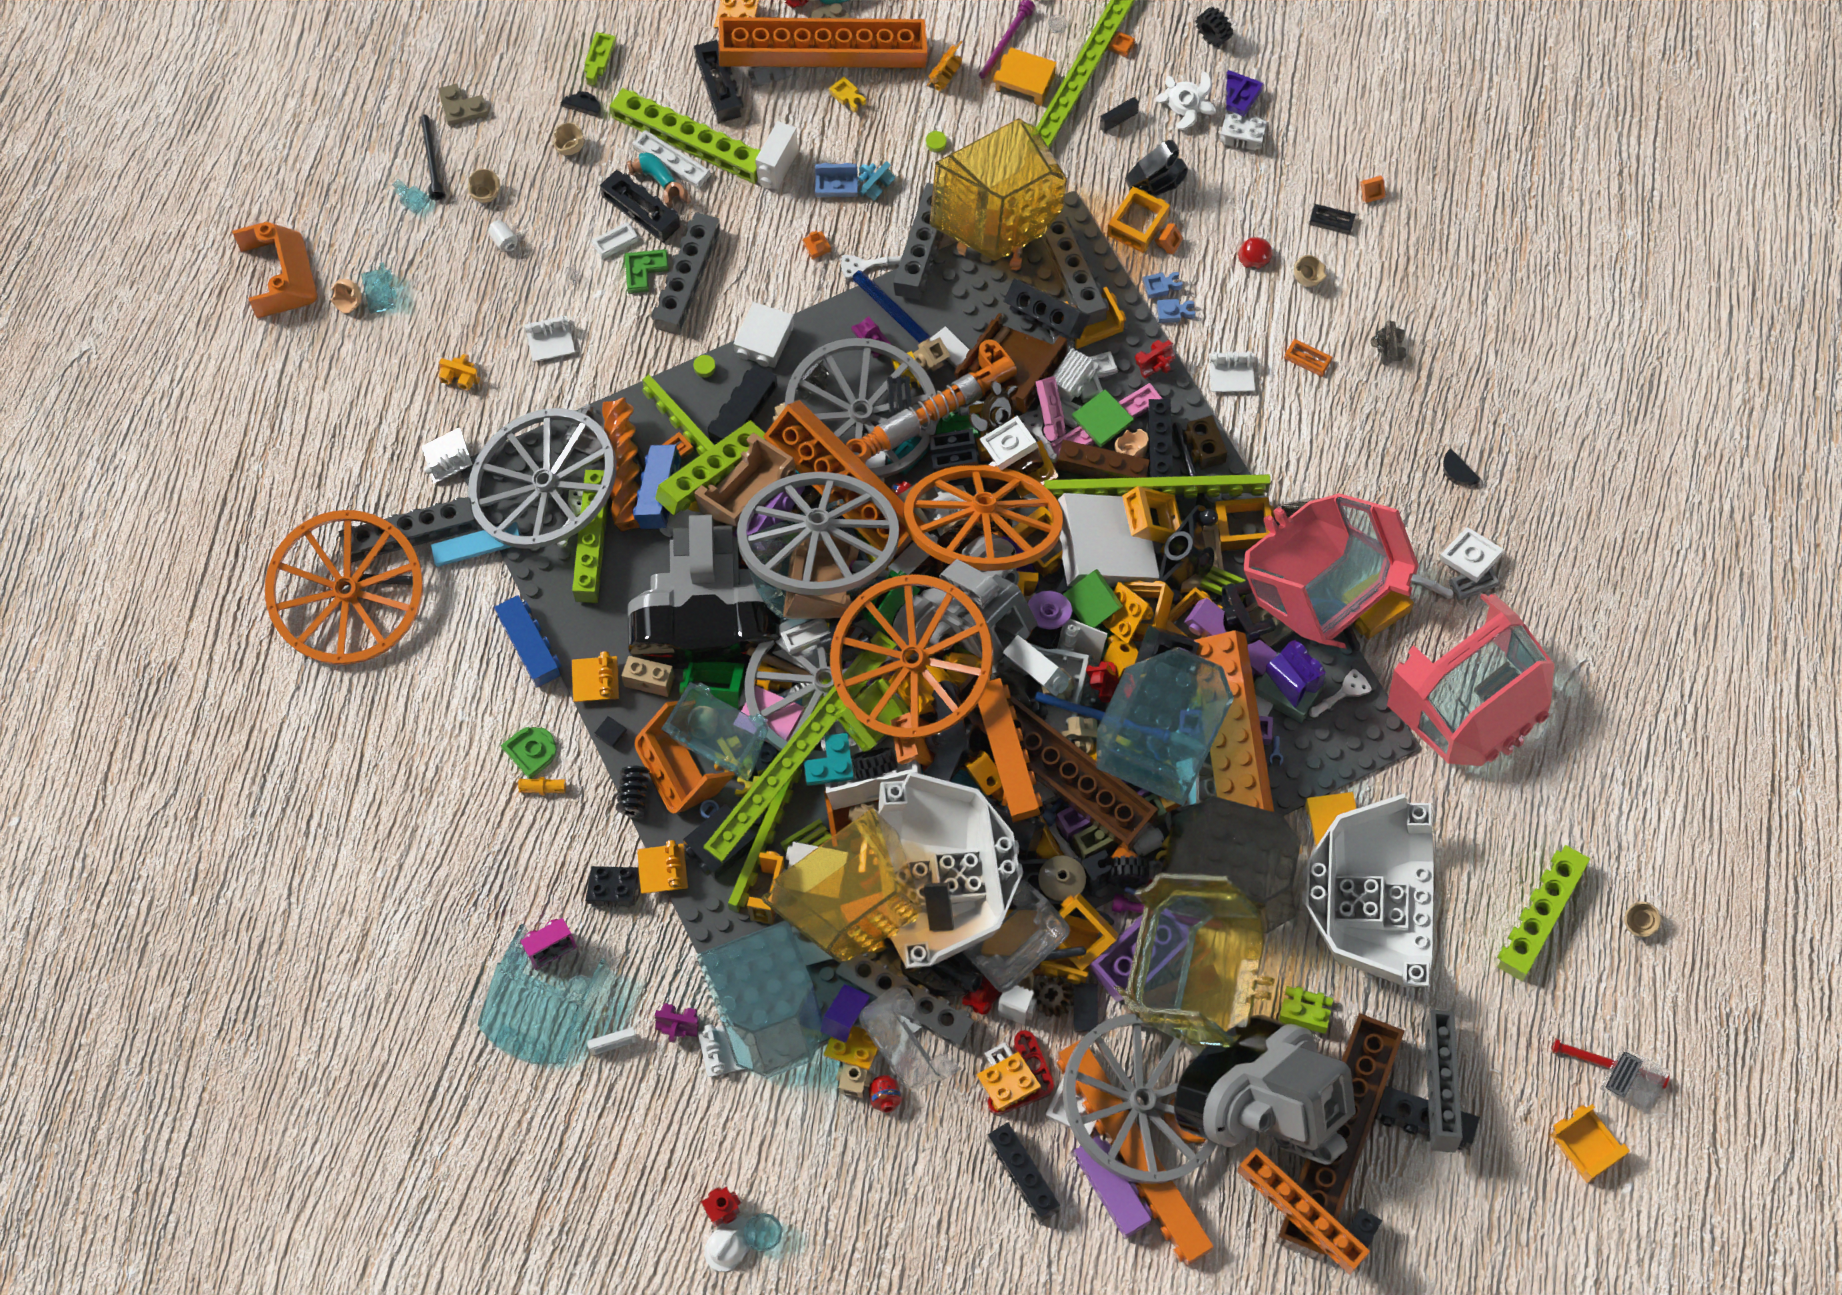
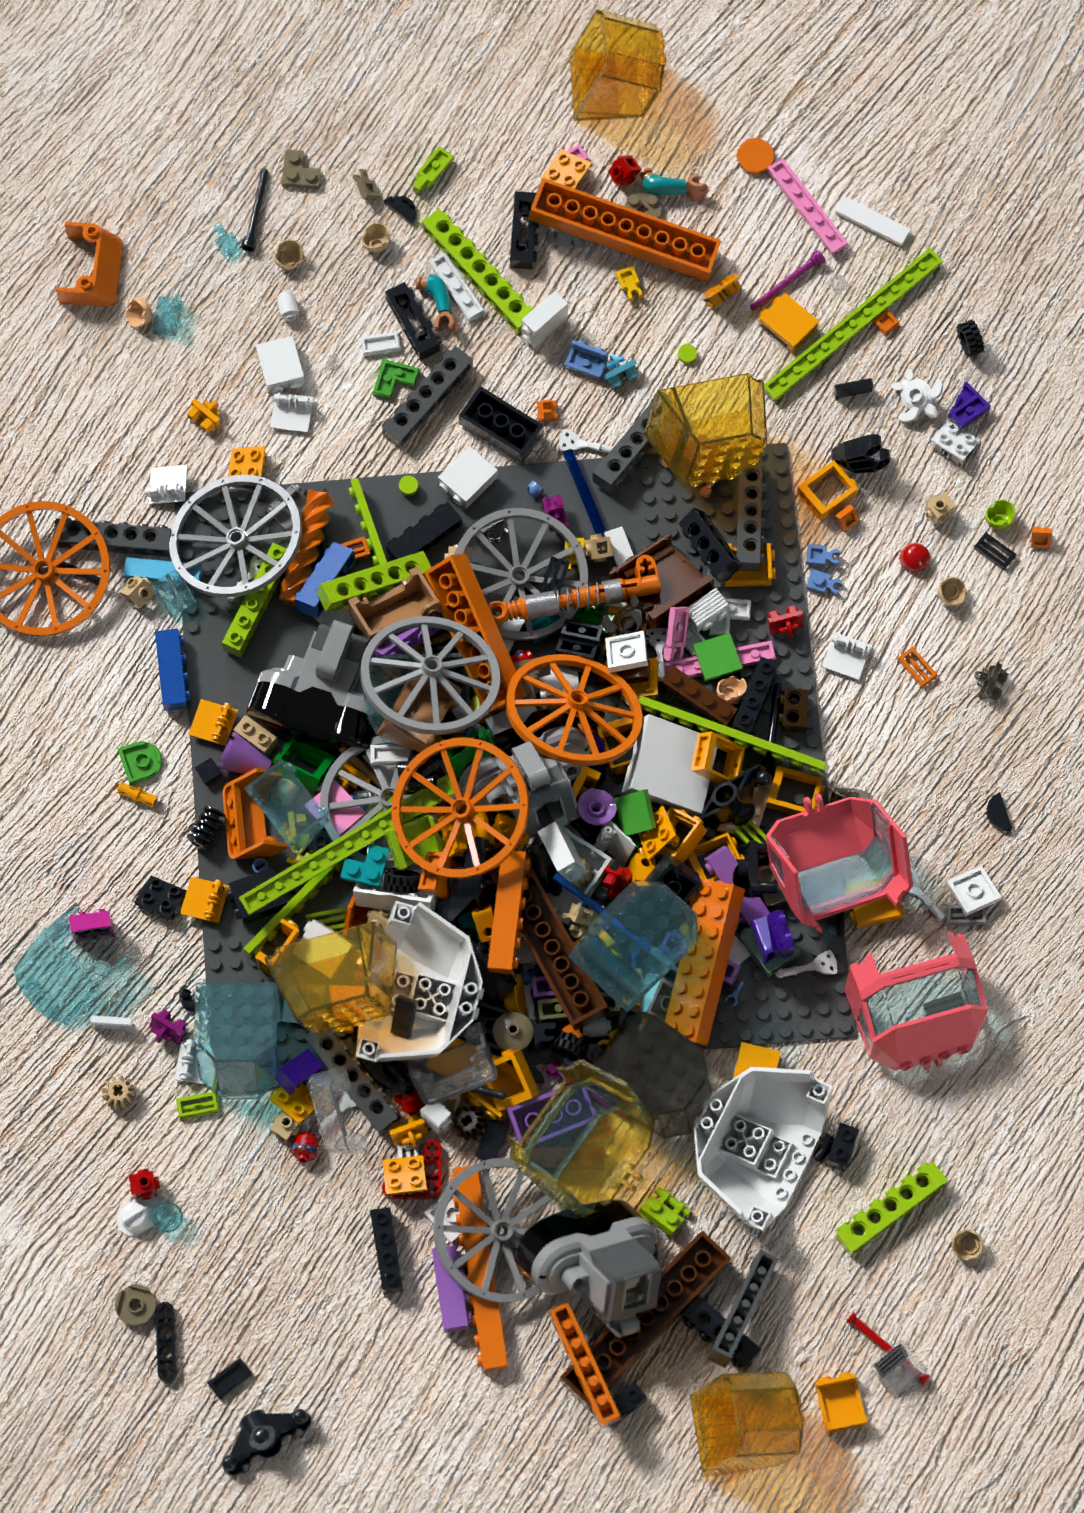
camera: 20 degrees right, 5 degrees up
(458, 574) = (137, 591): none -> tan brick
(498, 561) = (173, 593): none -> clear light blue bracket
(518, 295) = (280, 364): none -> white brick
(523, 401) = (247, 461): none -> light orange hinge
(539, 96) = (366, 187): none -> dark tan plate
(641, 701) = (242, 757): none -> medium lavender cone
(660, 1109) = (111, 1097): none -> tan gear
(688, 987) = (187, 1000): none -> black arm
(727, 1106) = (215, 1109): none -> lime tile
(776, 272) = (501, 424): none -> black brick
(839, 322) = (534, 489): none -> medium blue hinge
(993, 1034) = (408, 1133): none -> light orange hips
(1260, 196) = (939, 508): none -> tan brick
(1323, 180) = (1000, 514): none -> lime hair
(1443, 877) = (823, 1151): none -> black arm
(1462, 868) = (842, 1147): none -> black brick
(1507, 1203) = (747, 1422): none -> clear yellow windscreen

